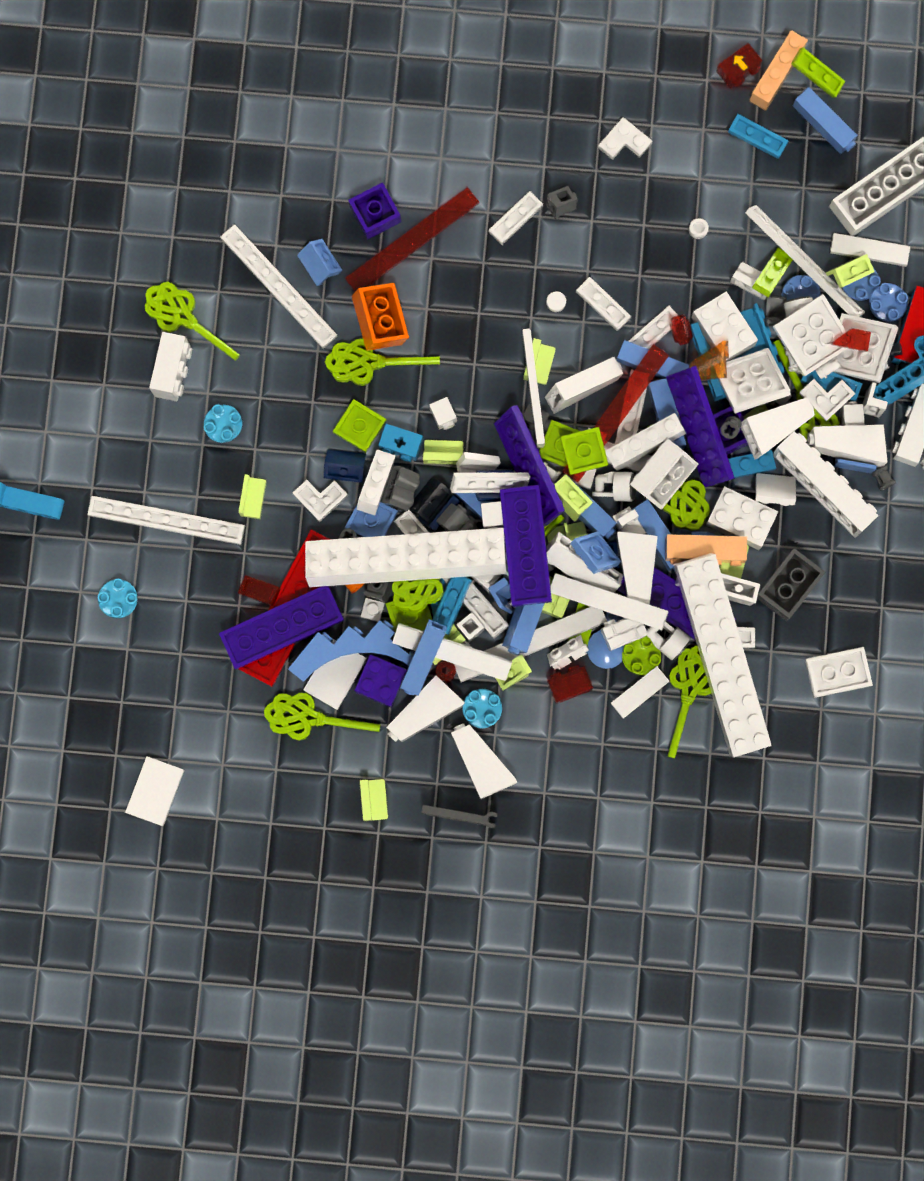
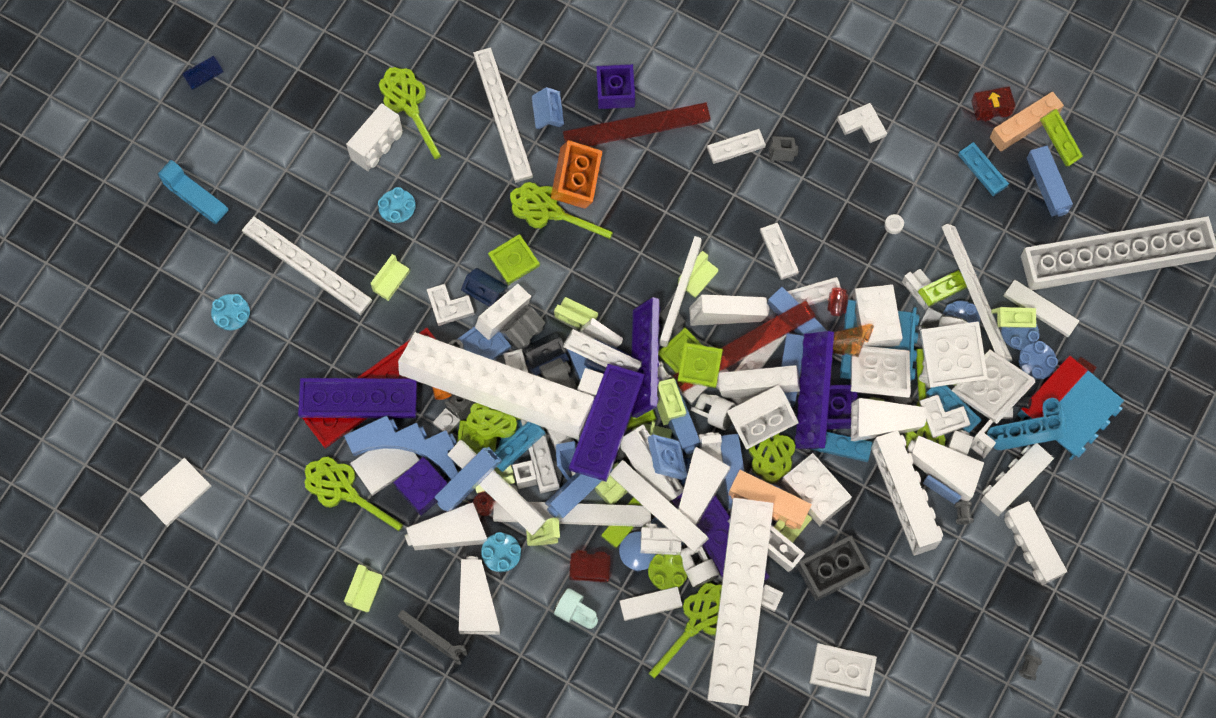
camera: 20 degrees right, 10 degrees down
(259, 590) = (355, 359): clear red tile -> none
(393, 435) = (539, 280): dark azure brick -> none
(443, 414) = (592, 281): white brick -> none
(556, 301) = (738, 231): white tile -> none
(560, 656) = (592, 538): white hinge -> none
(569, 730) = (570, 608): none -> light aqua piece
(727, 431) = (839, 406): dark grey bush -> none
(775, 489) = (858, 477): white tile -> none
(828, 367) = (955, 390): white pin -> none
(854, 339) = (989, 374): clear red tile -> none

